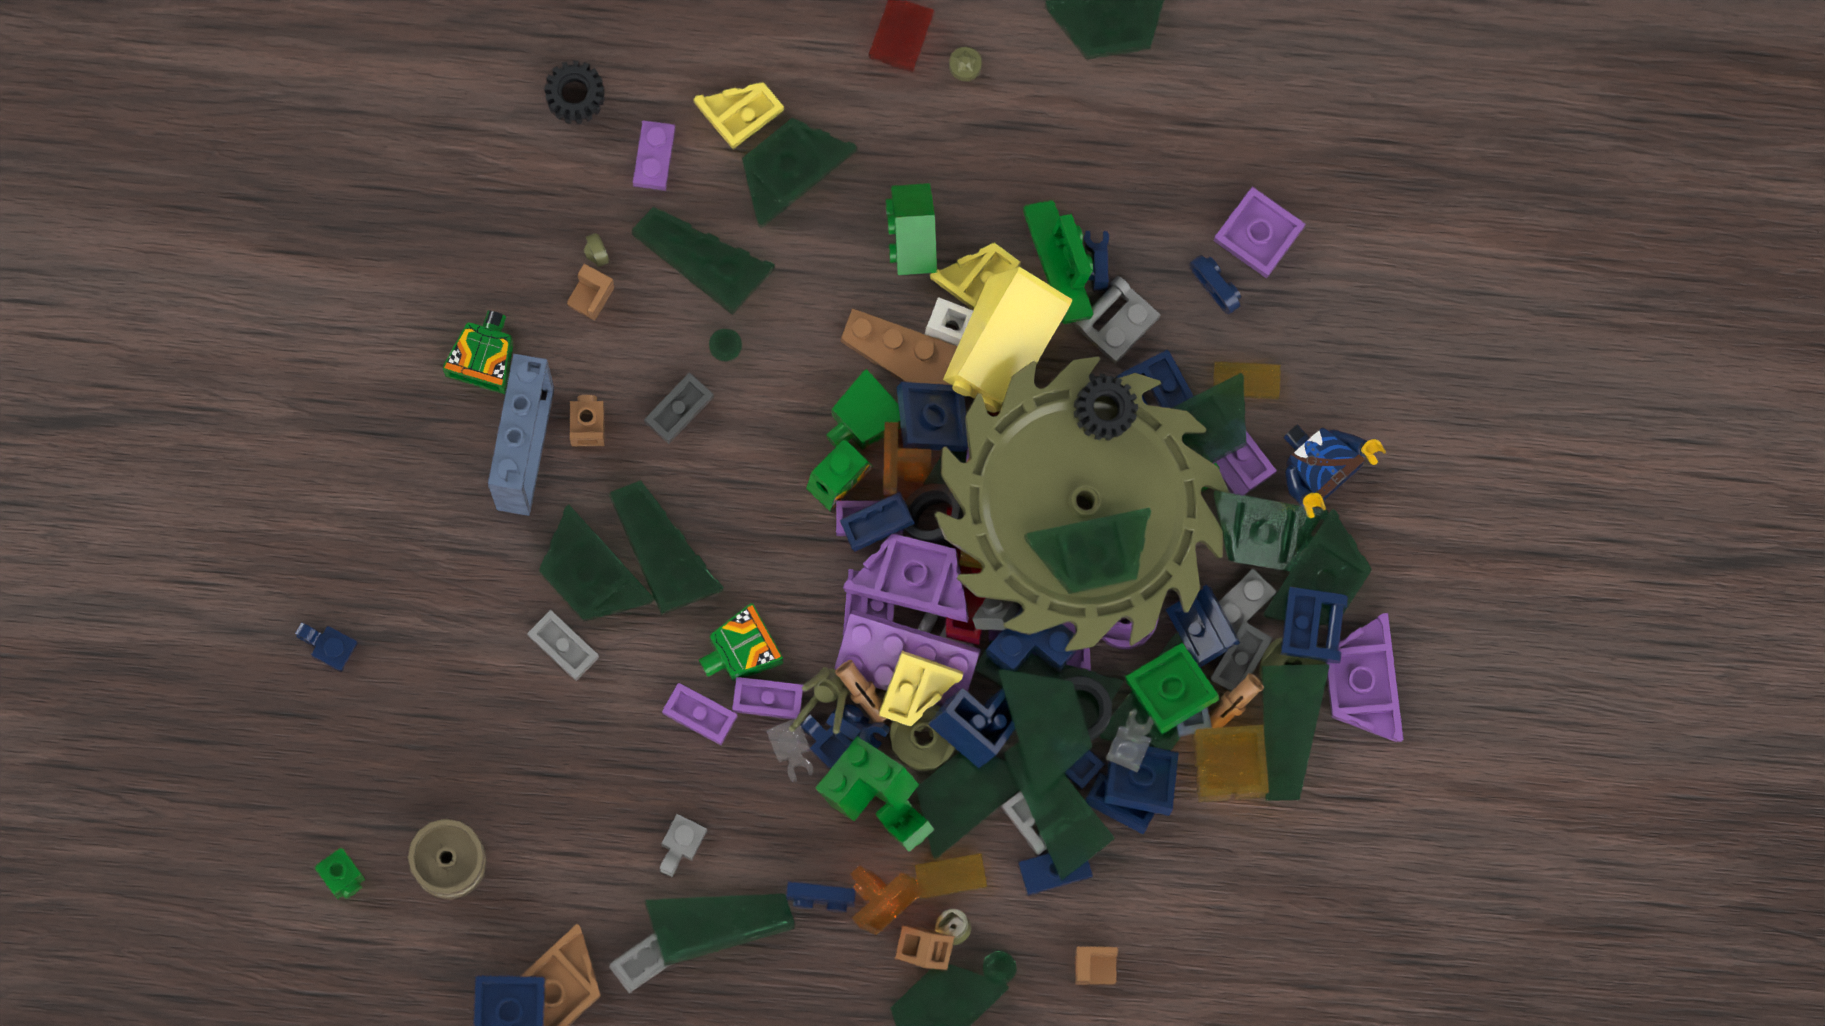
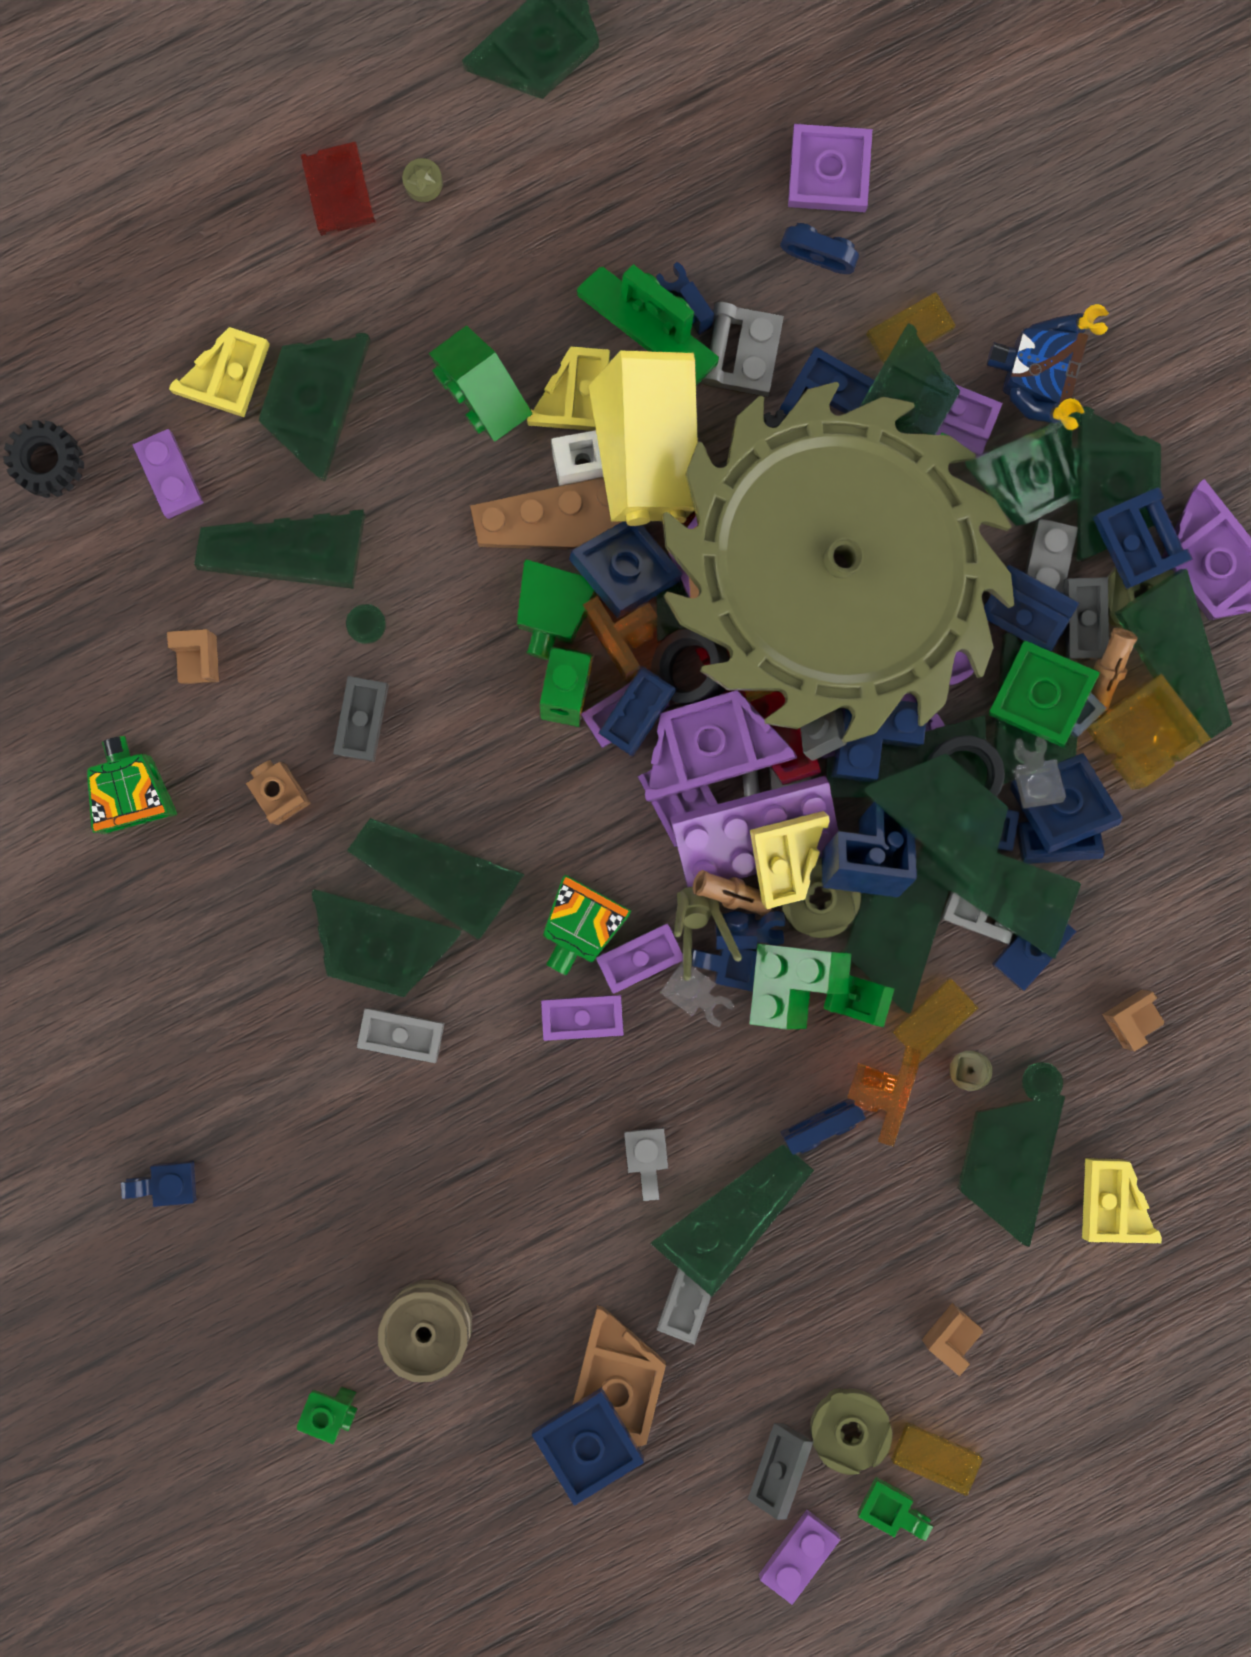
camera: 25 degrees left, 10 degrees up
(521, 435) = (214, 853): sand blue window -> none
(595, 250) = (171, 610): olive tile -> none
(924, 947) = (959, 1113): medium nougat brick -> none
(1091, 422) = (818, 426): black tyre -> none
(1093, 551) = (888, 605): clear green wing -> none

